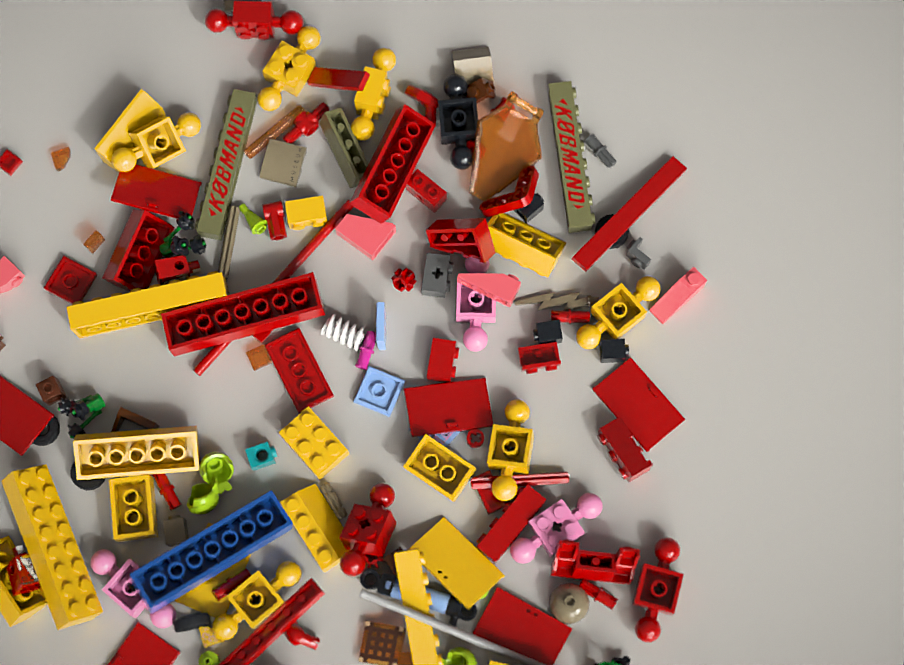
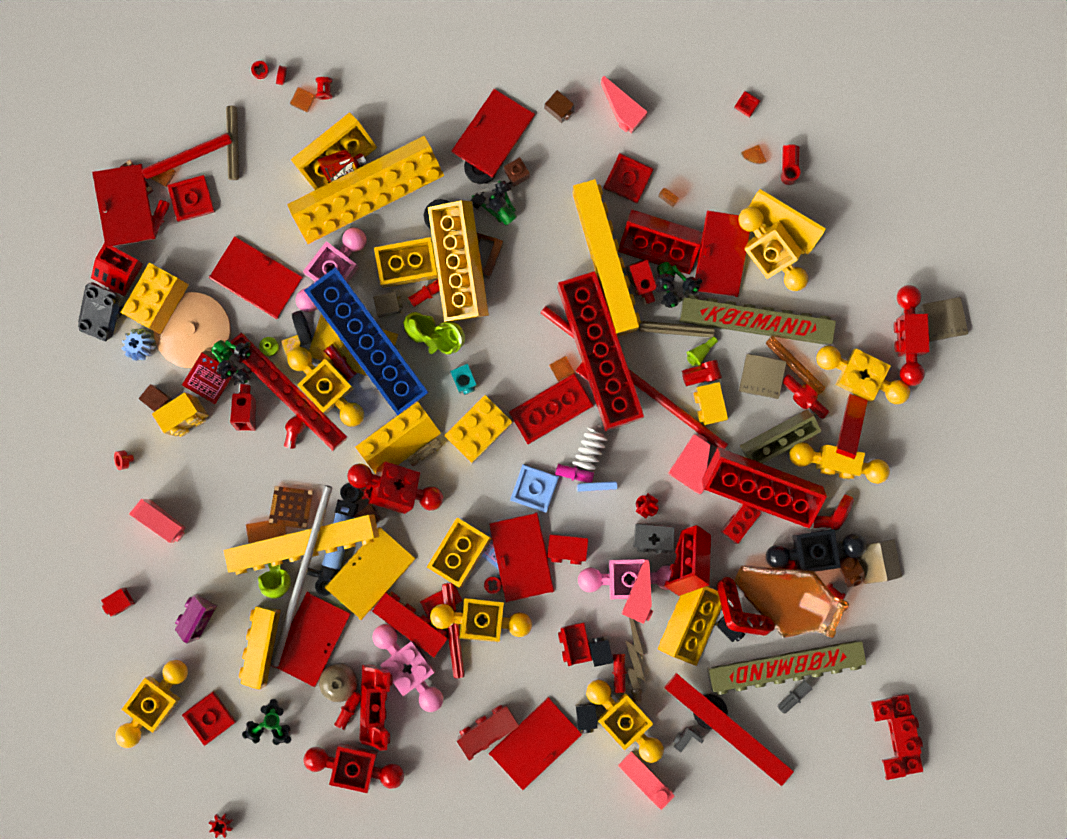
camera: 85 degrees right, 10 degrees up
(73, 124) = (790, 162): none -> red piece
(641, 53) = (903, 735): none -> red bracket

